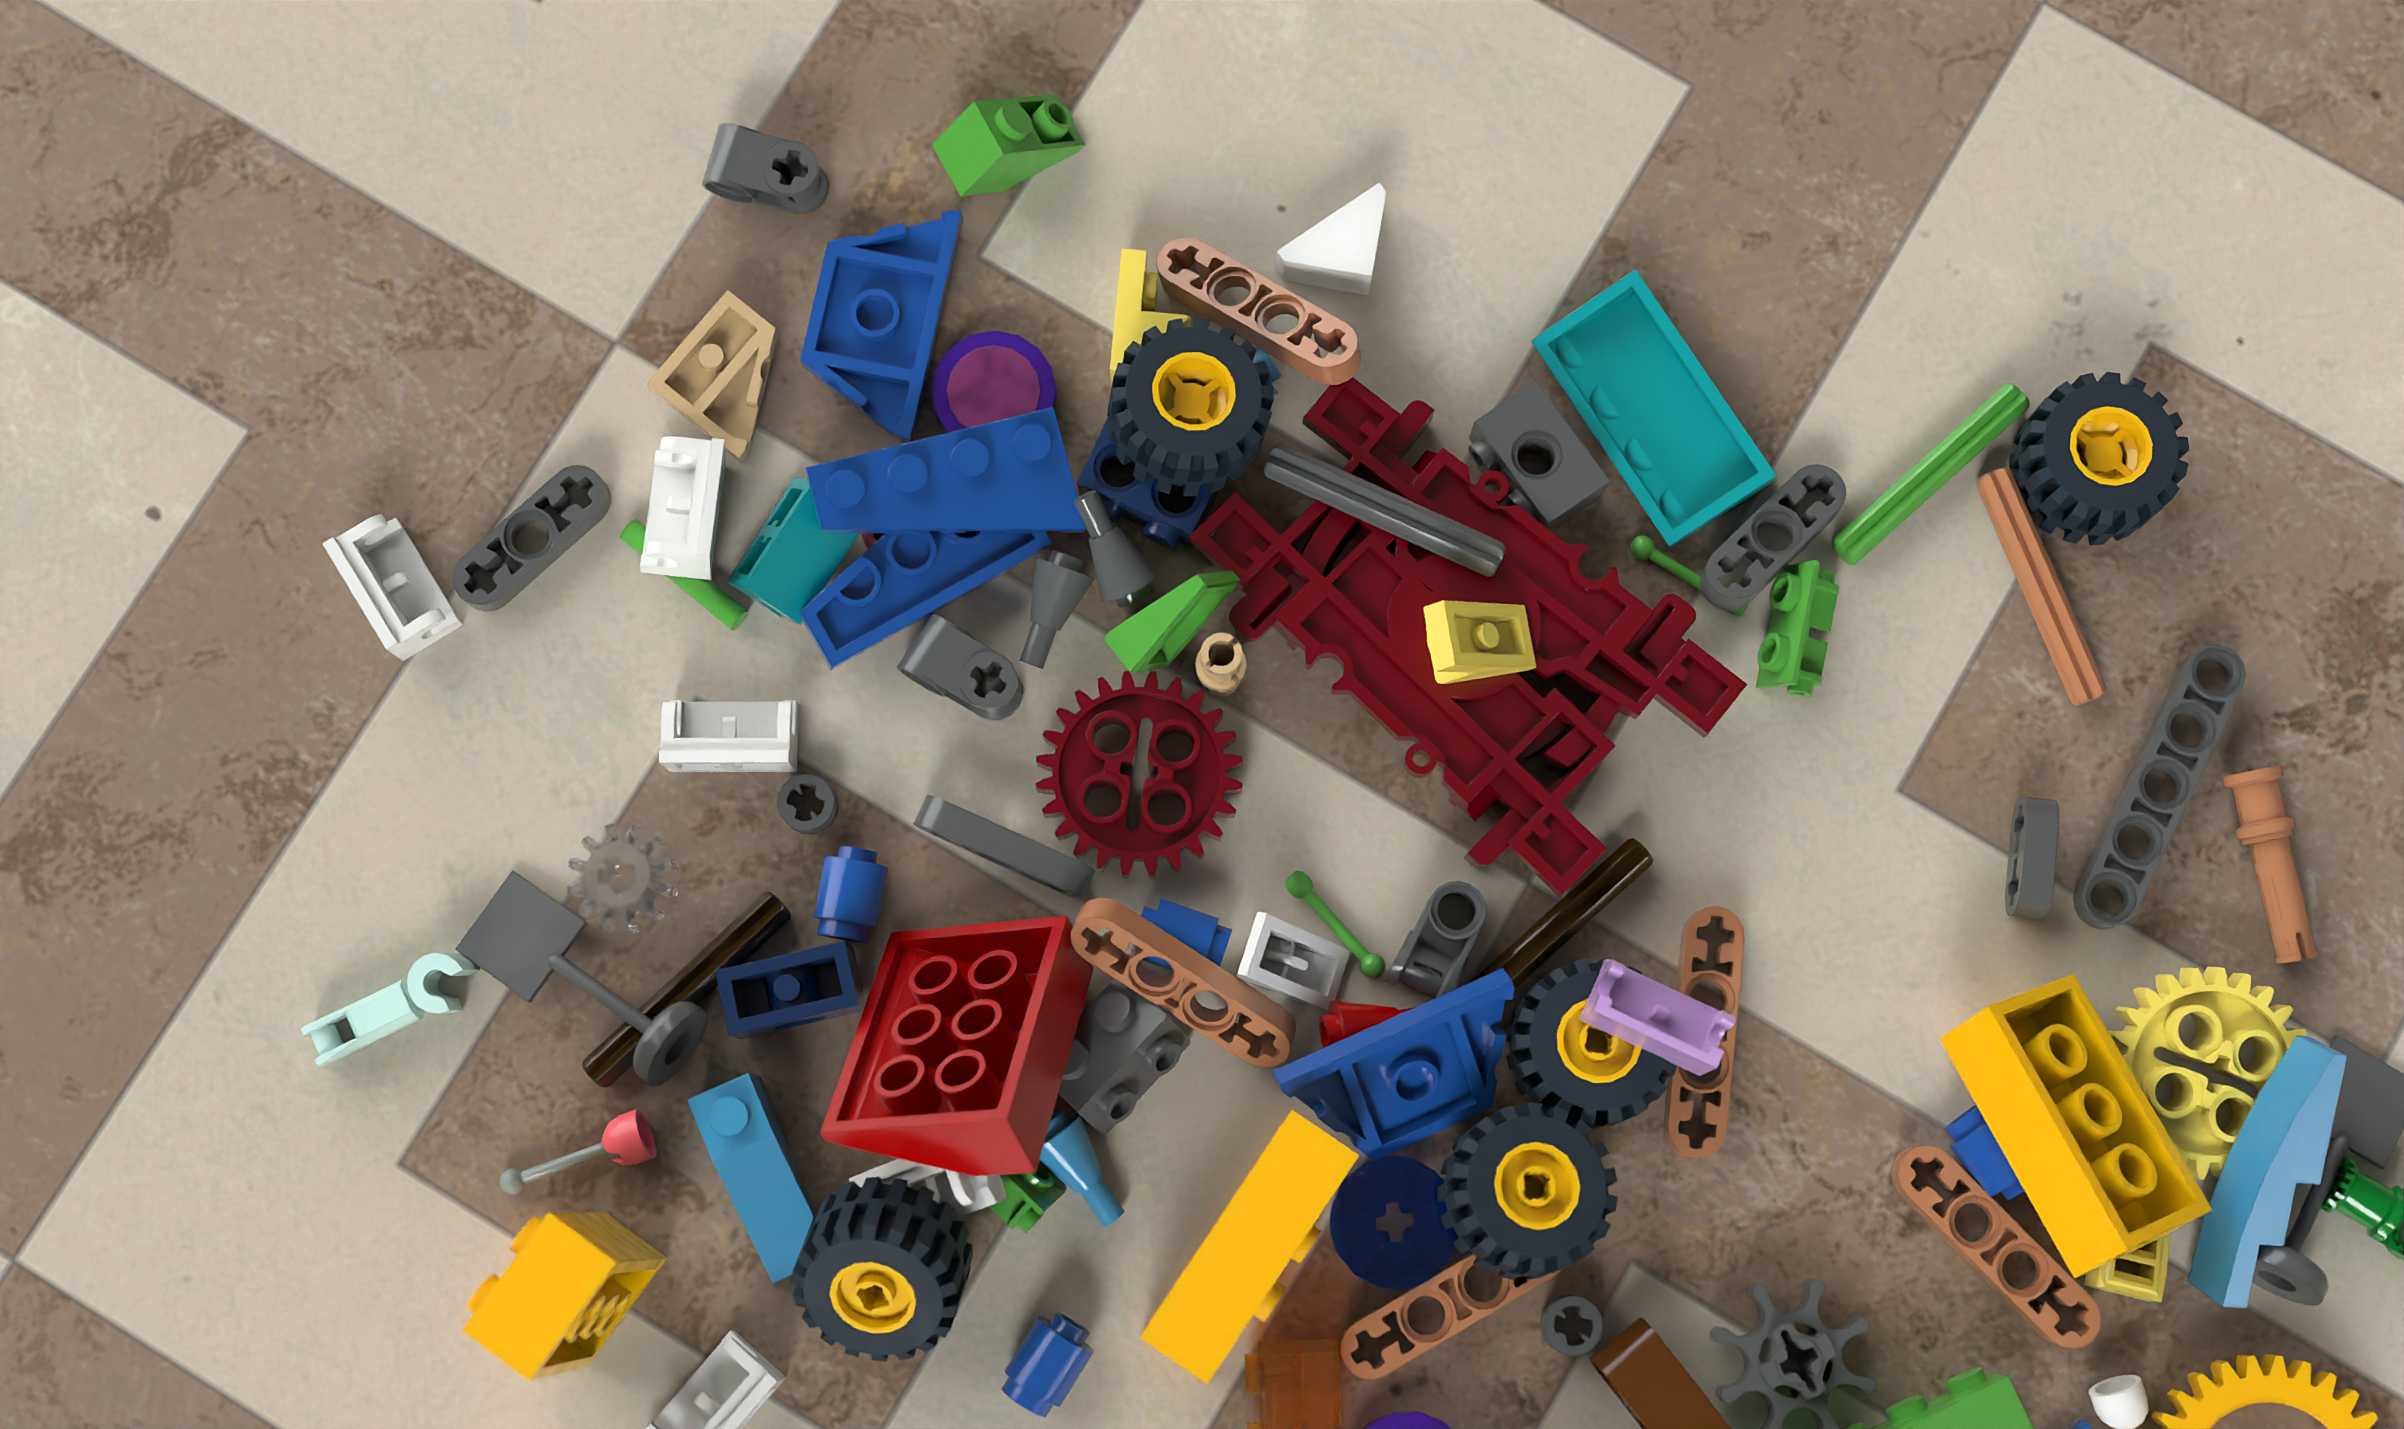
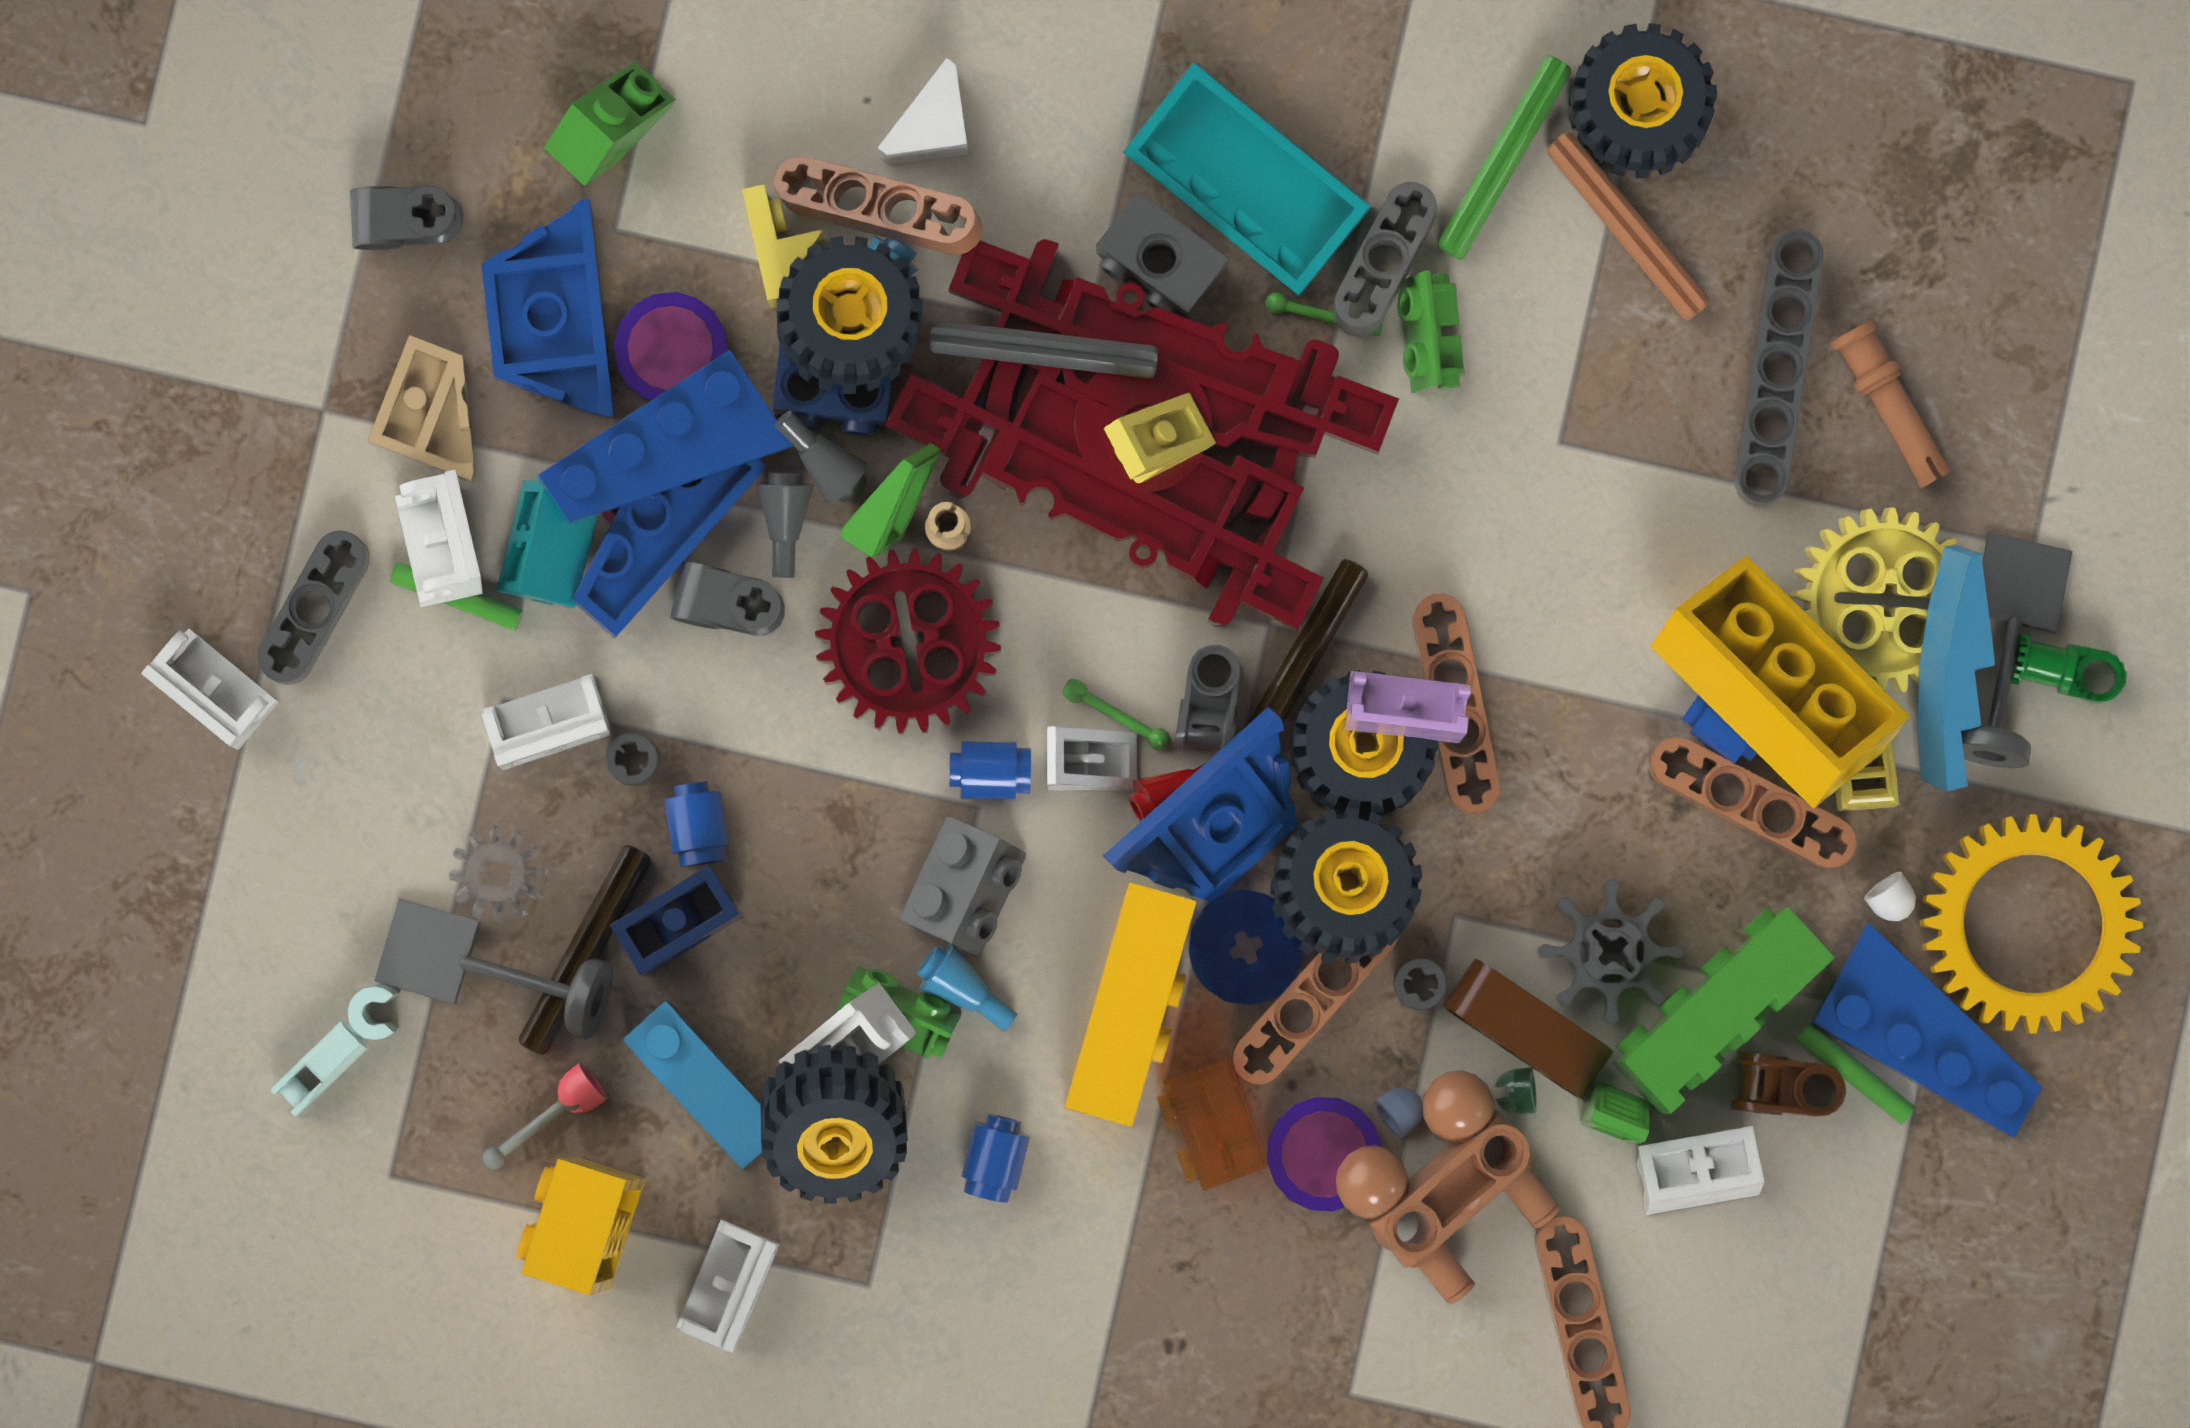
camera: 20 degrees left, 5 degrees up
(963, 1046) = (838, 917): red slope -> none
(1004, 847) = (814, 741): dark grey beam -> none
(1176, 990) = (1008, 799): nougat beam -> none
(2032, 858) = (1687, 465): dark grey beam -> none

